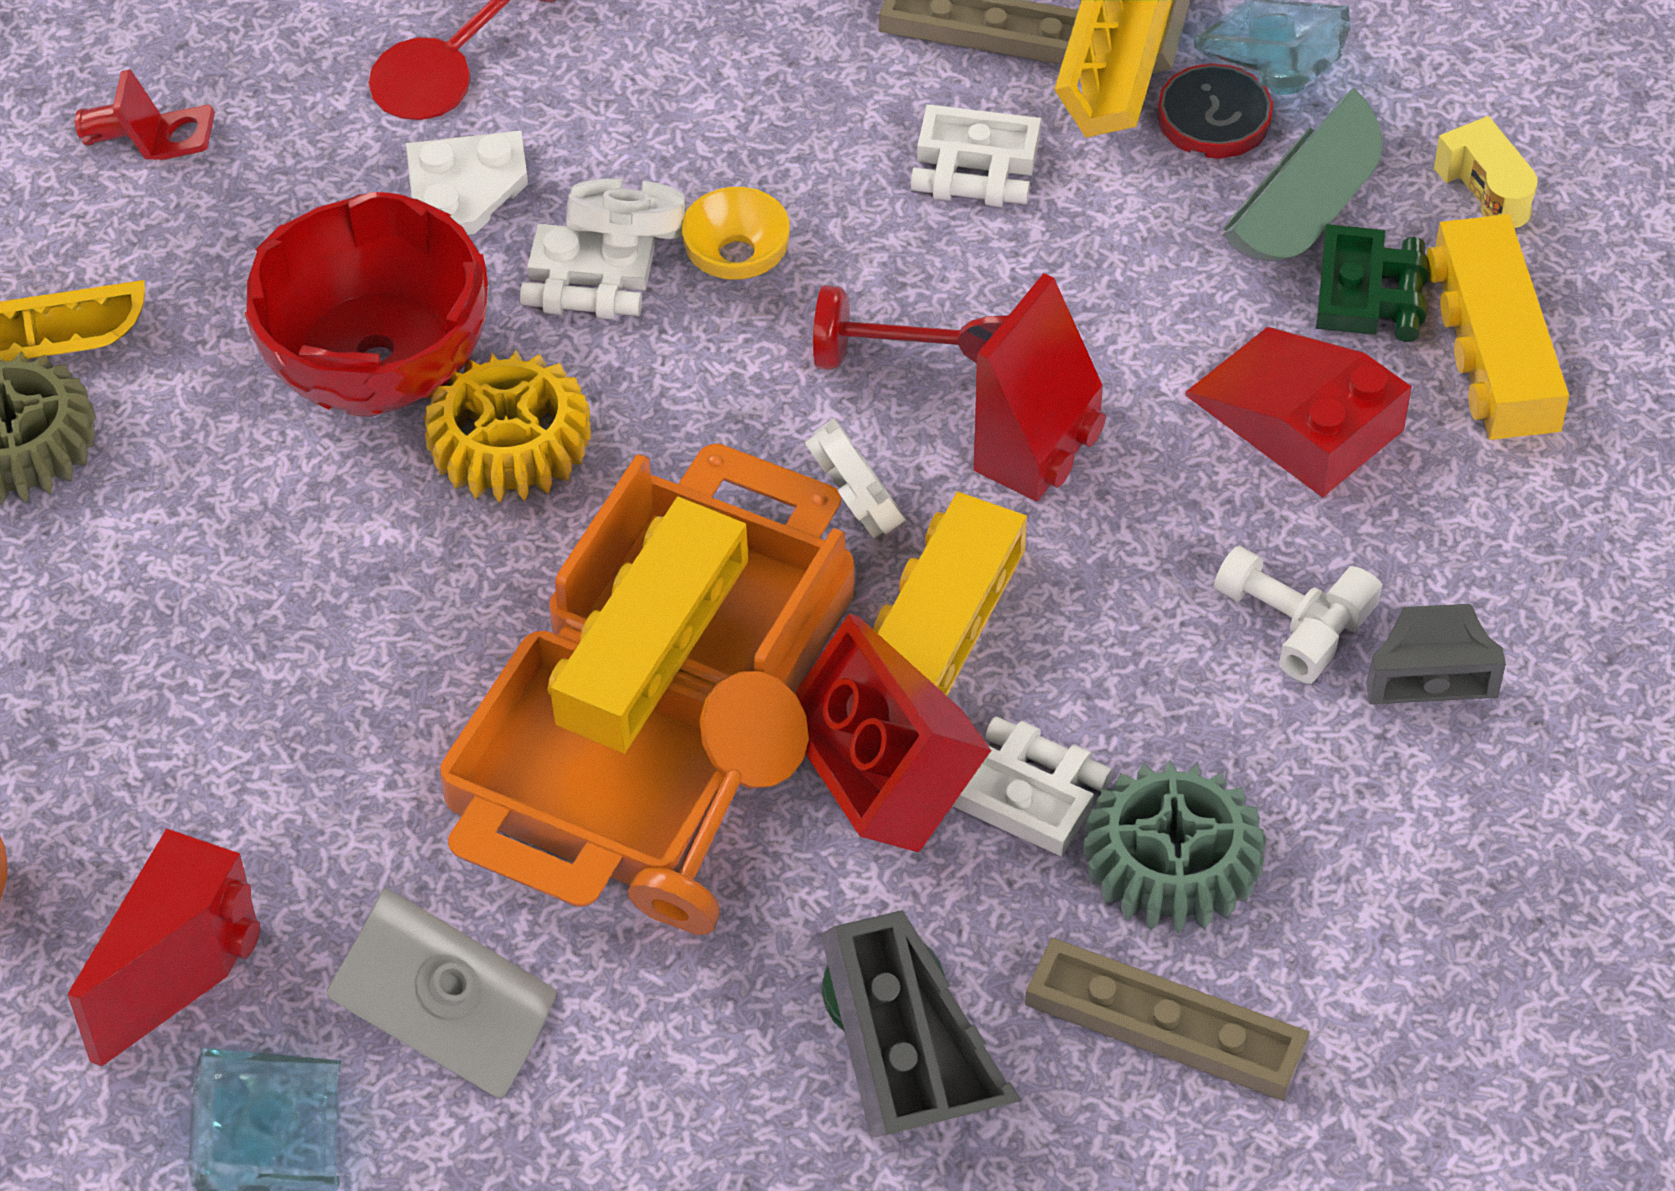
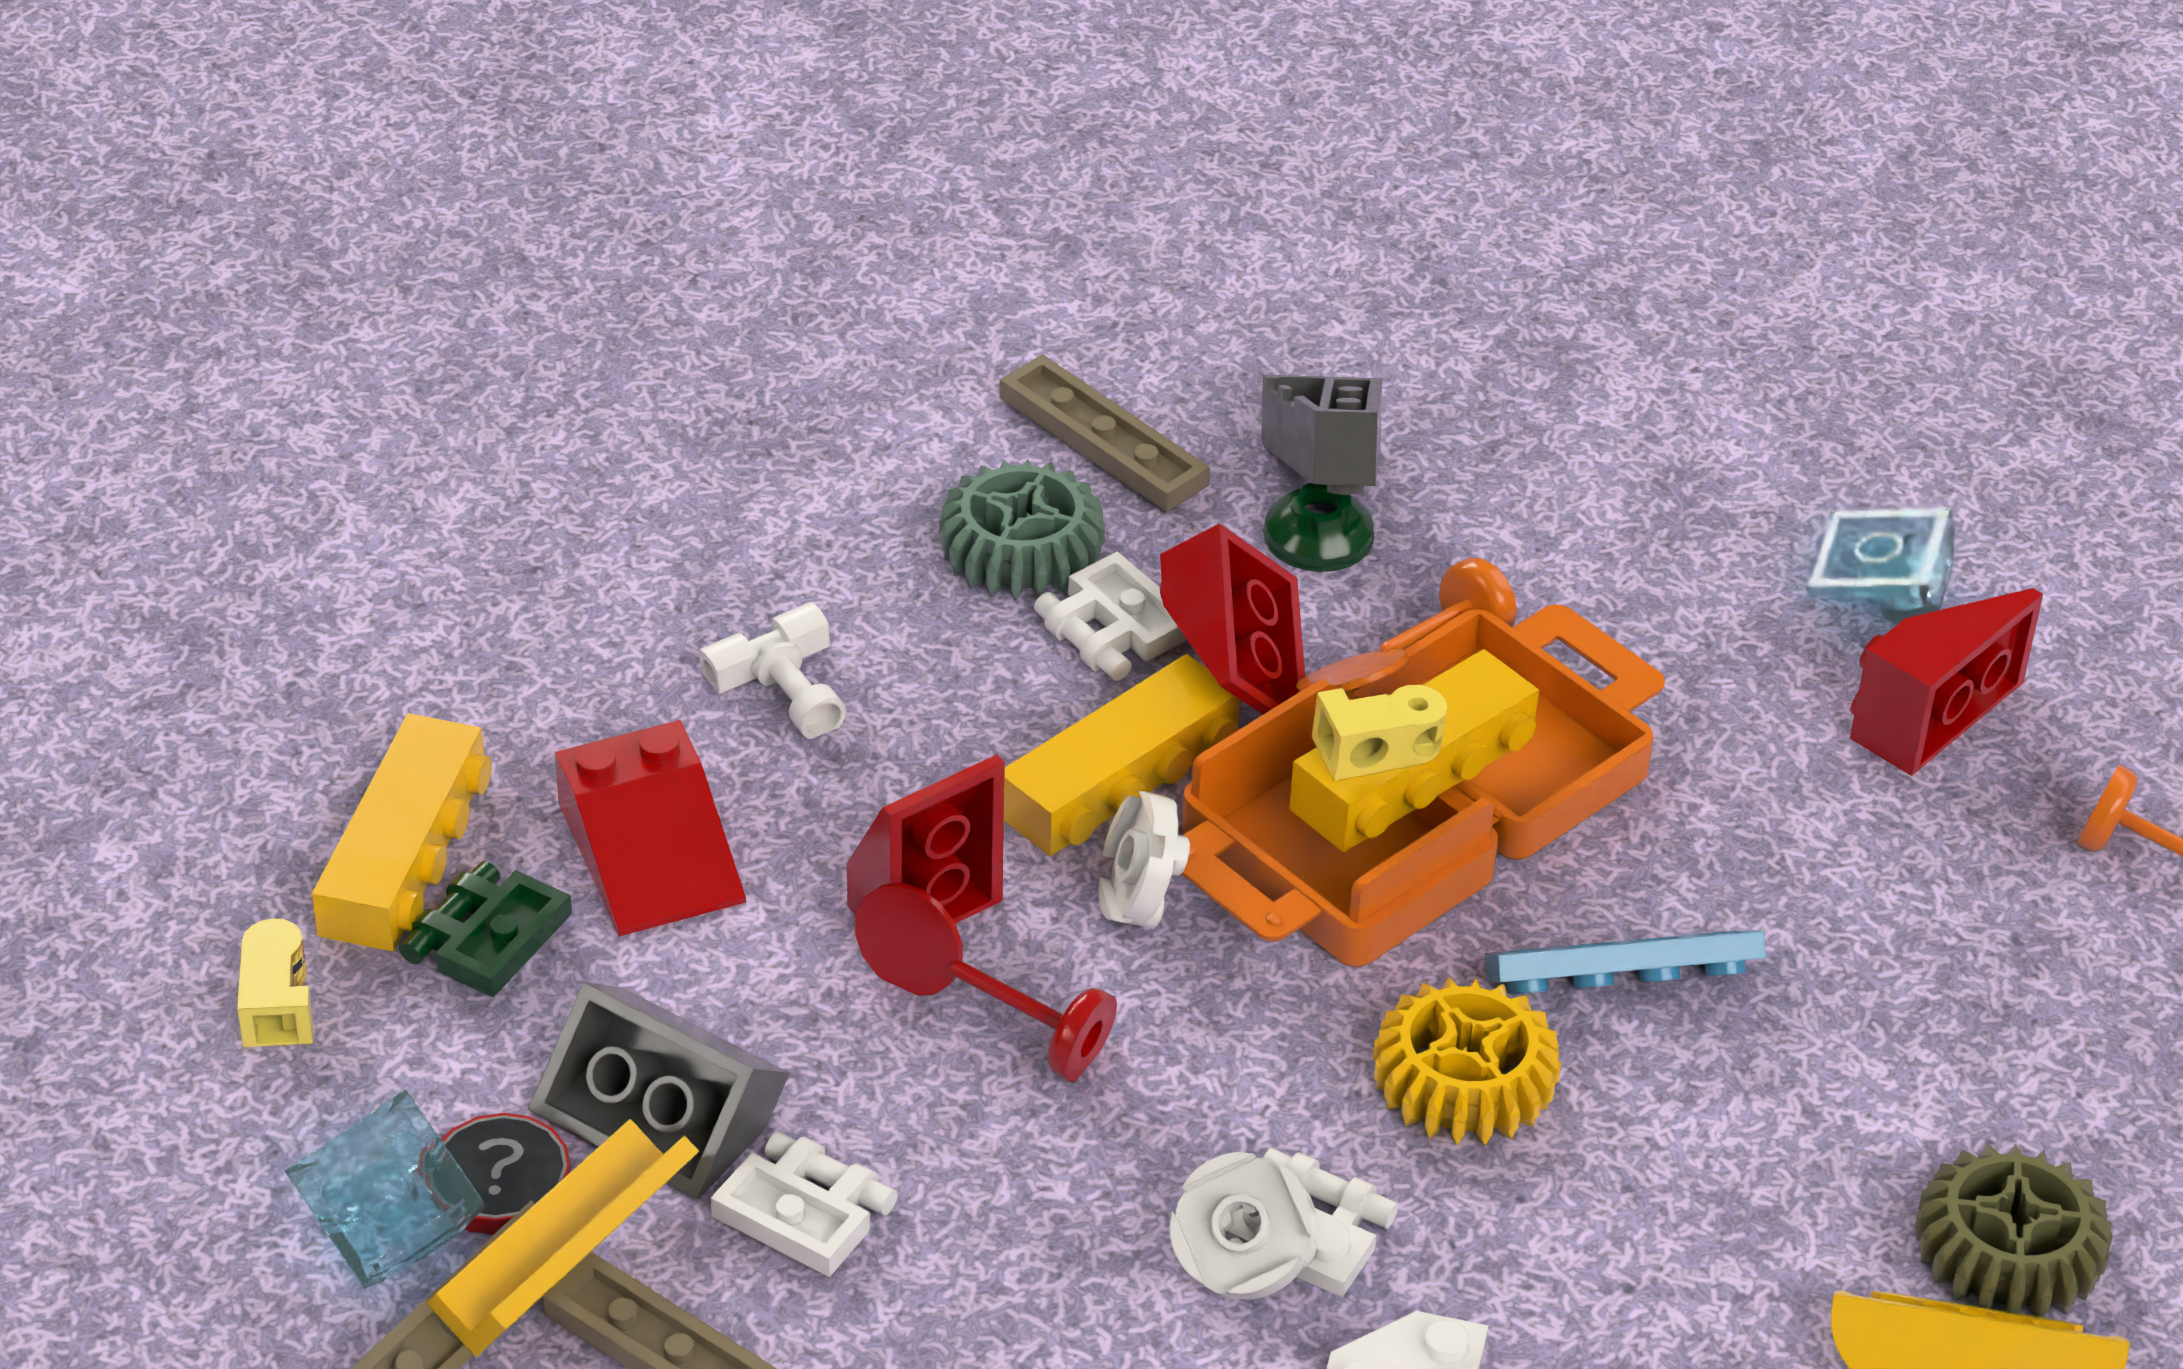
camera: 160 degrees left, 10 degrees down
(364, 279) = (1594, 1117): red piece -> none
(402, 570) = (1654, 958): none -> plate
(442, 993) = (1697, 597): light grey shield -> none
(673, 542) = (1378, 730): none -> light yellow leg
(735, 216) = (1127, 1154): yellow piece -> none
(1136, 198) = (662, 1072): none -> dark grey slope
(1309, 184) = (477, 1037): sand green brick -> none
(1436, 657) = (705, 580): dark grey slope -> none

